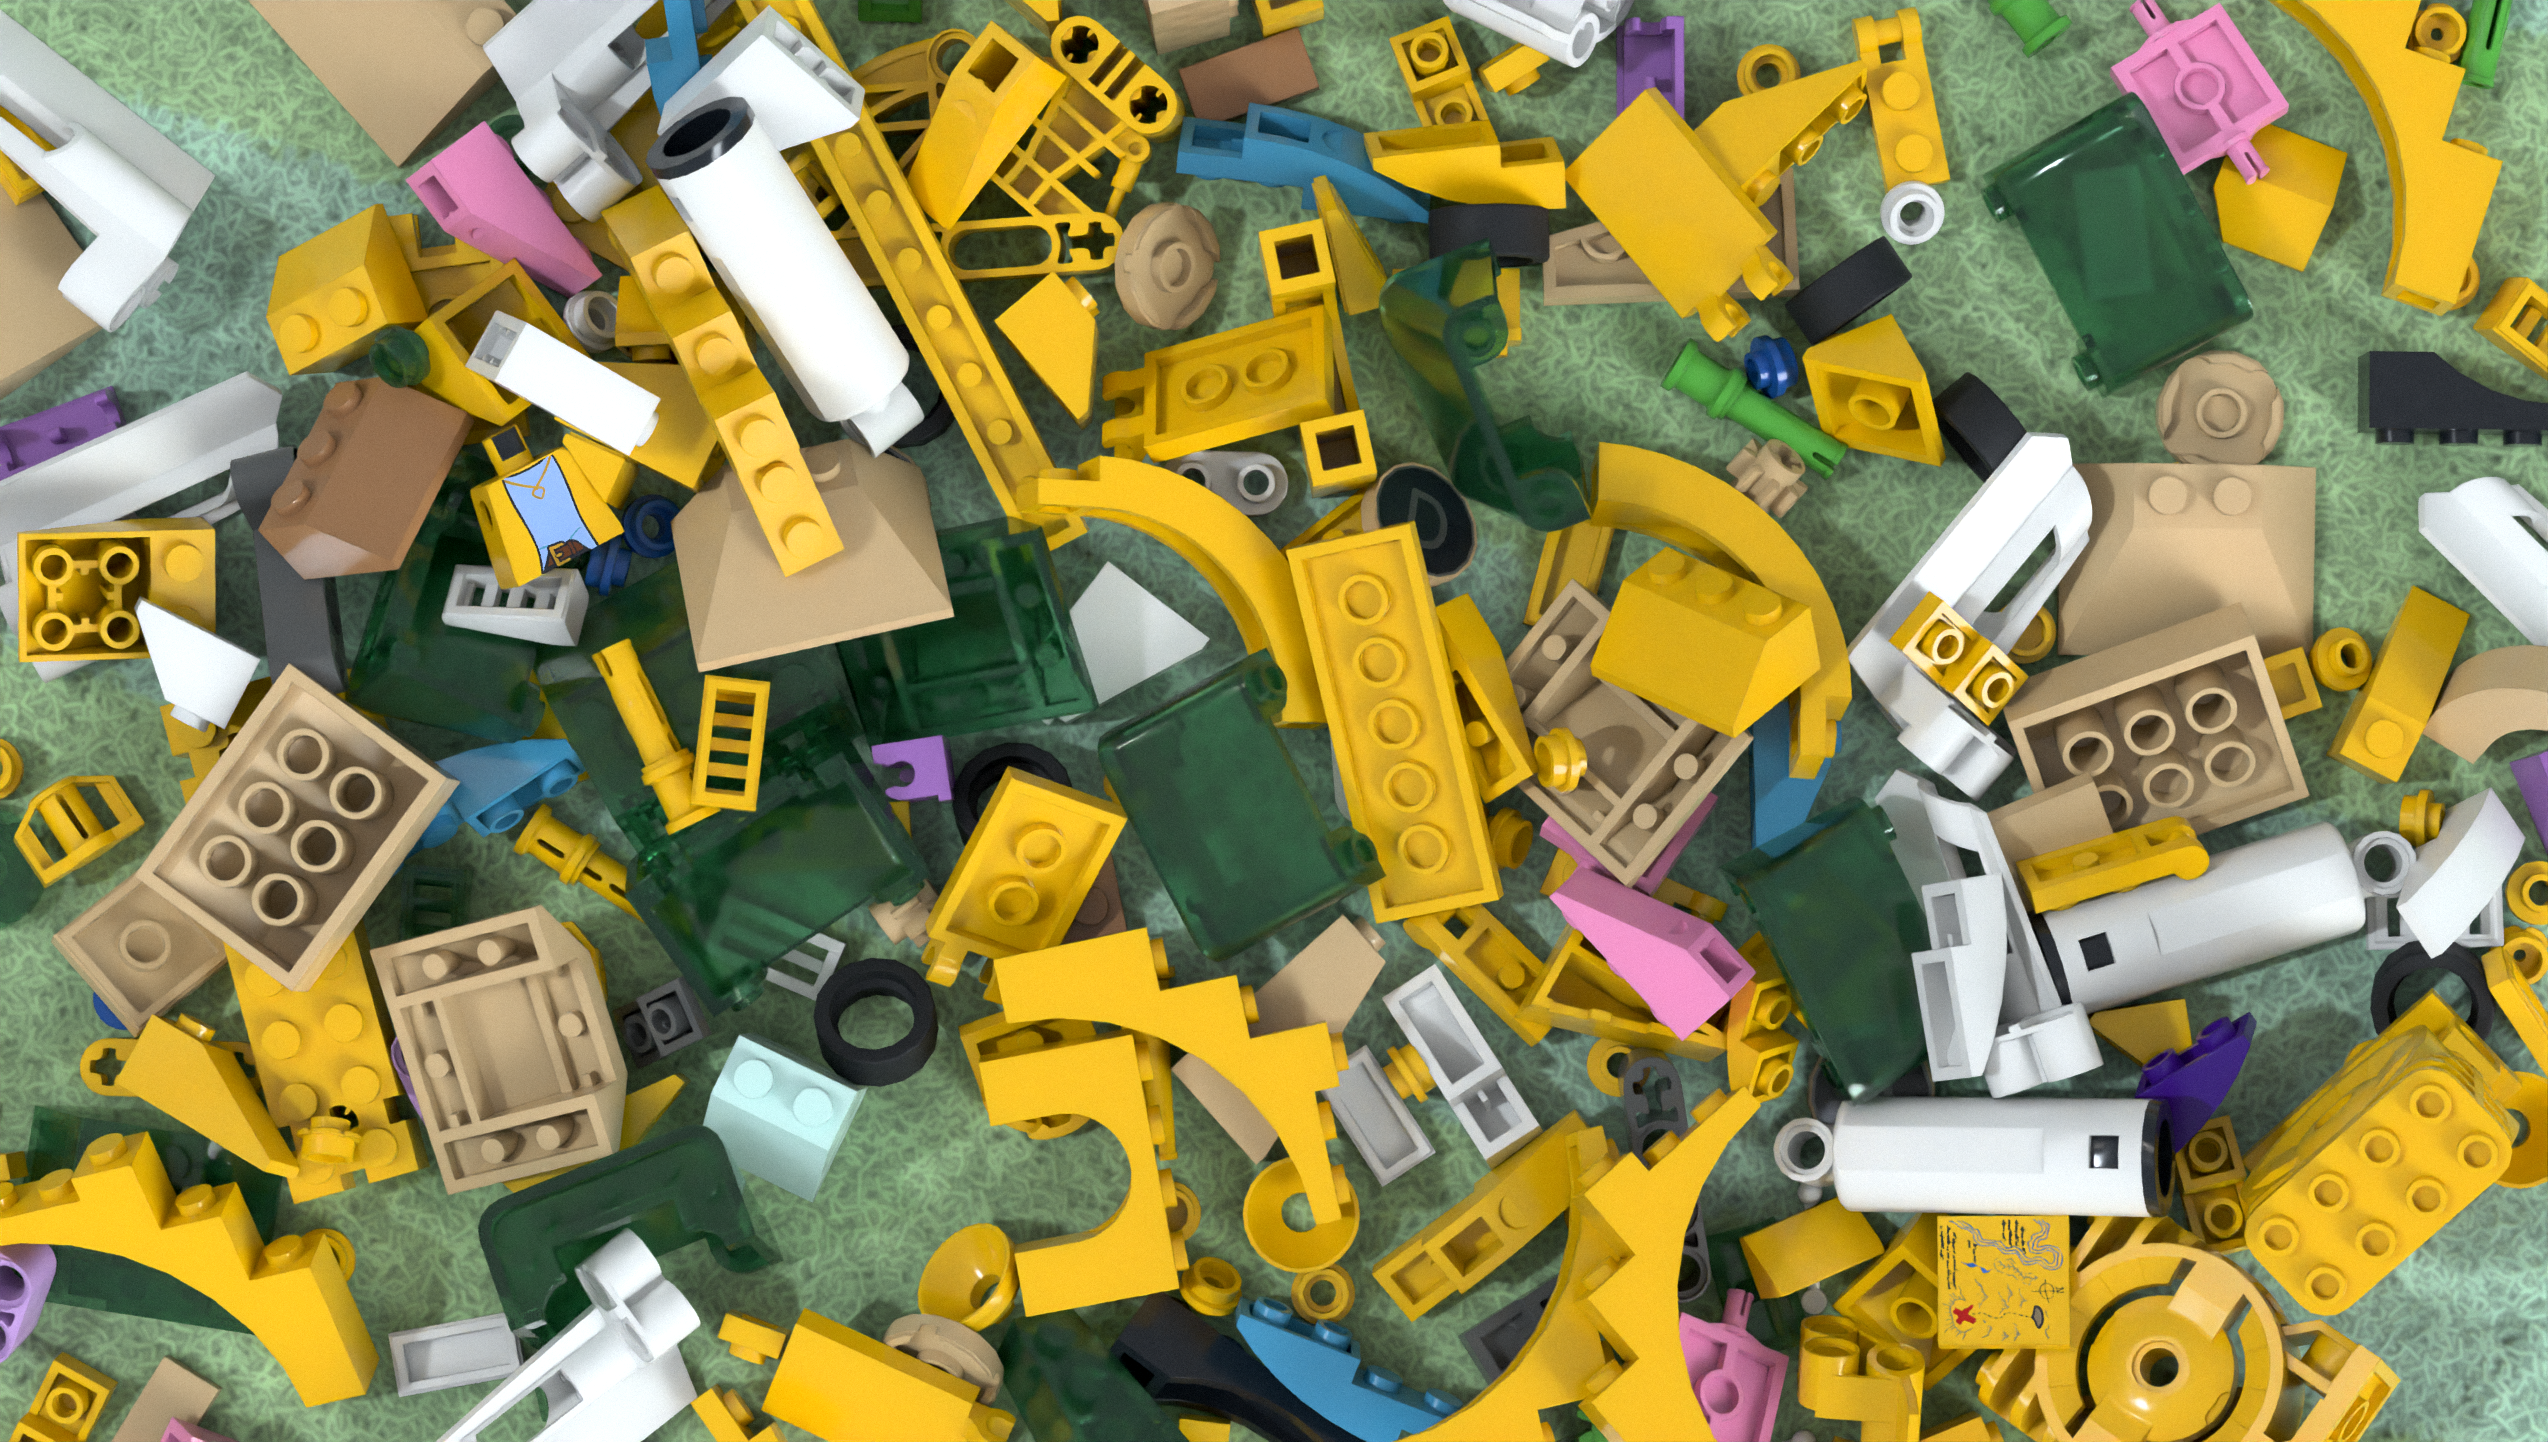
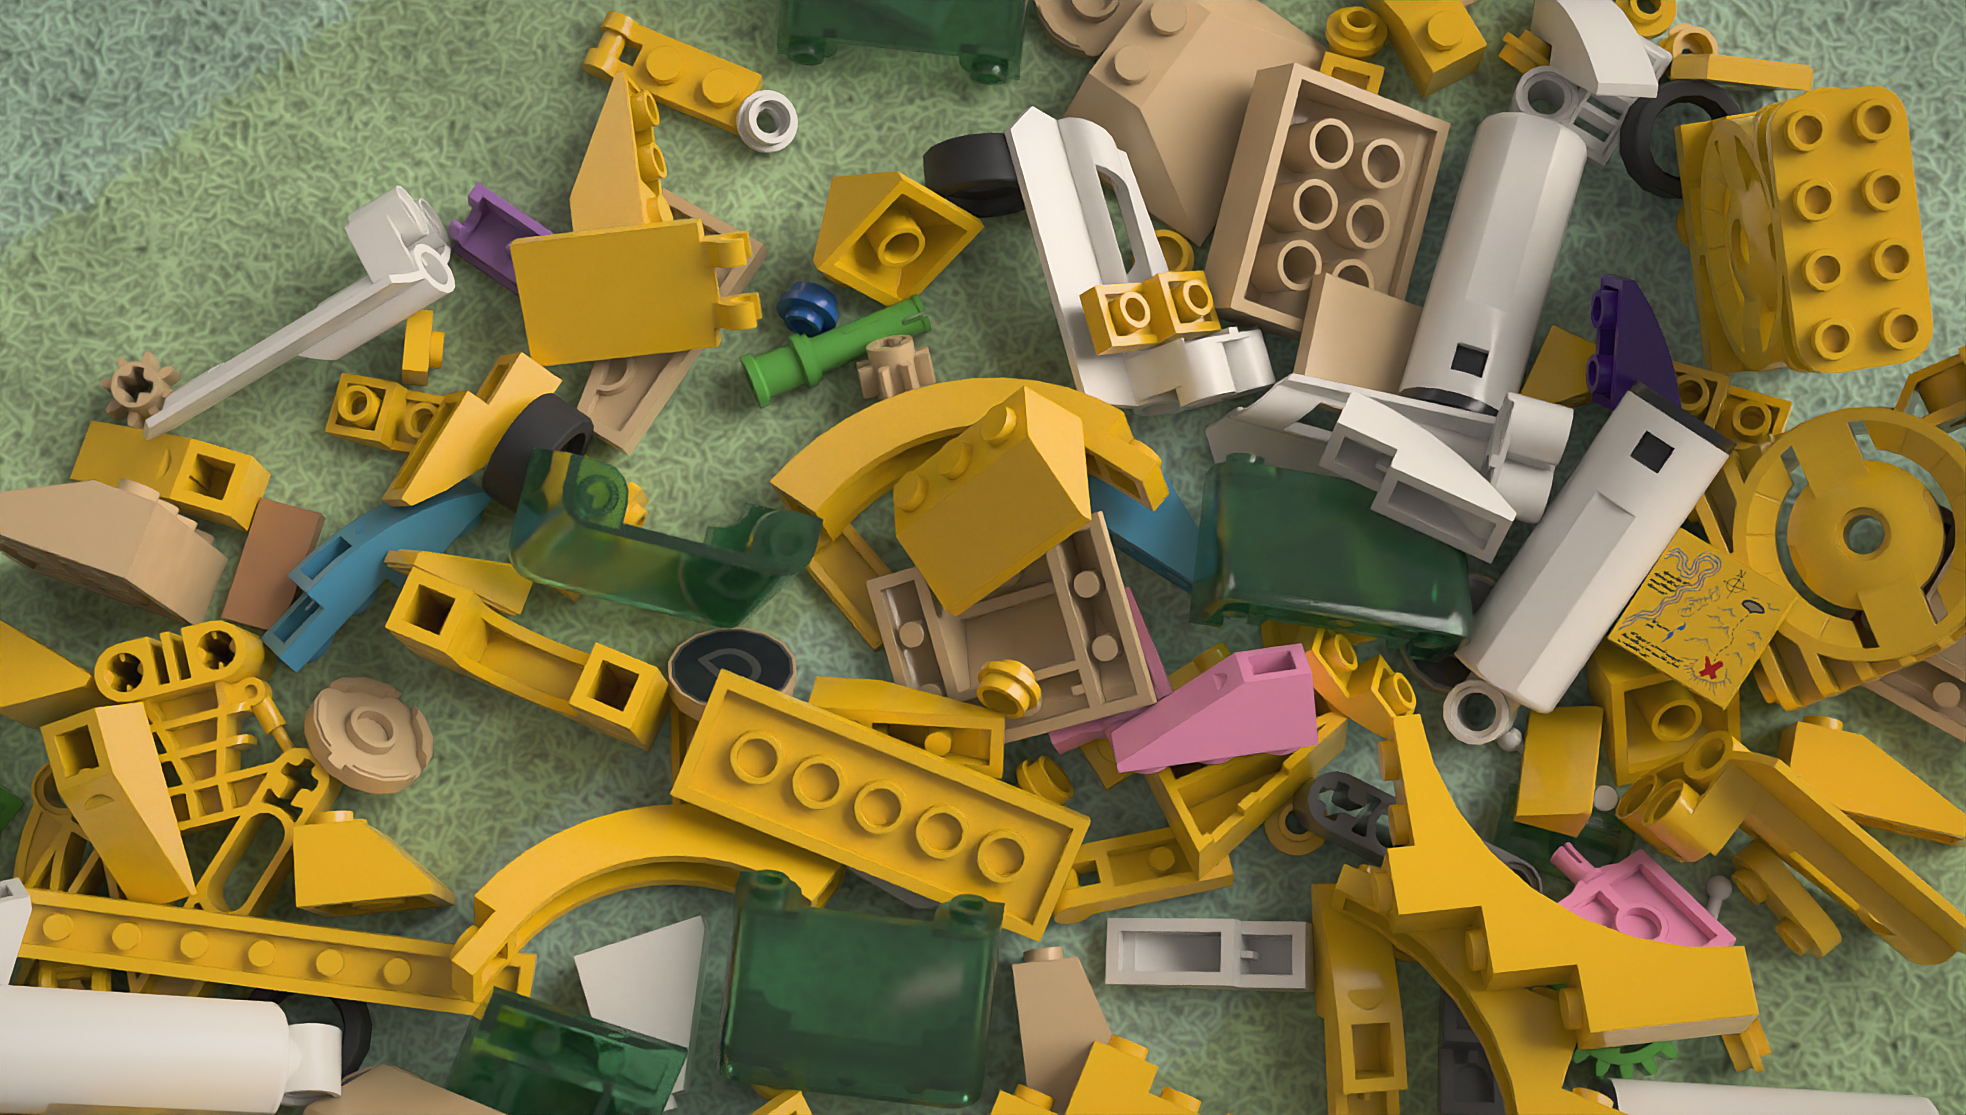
camera: 55 degrees left, 10 degrees down
(1223, 388) = (499, 756): yellow tile -> none
(1226, 474) = (576, 801): white plate -> none
(1377, 1118) = (1207, 1058): white tile -> none
(1409, 1073) = (1185, 1003): yellow plate -> none
(1761, 56) = (560, 152): yellow plate -> none
(1848, 290) = (790, 204): black tyre -> none
(2112, 864) = (1403, 305): yellow plate -> none

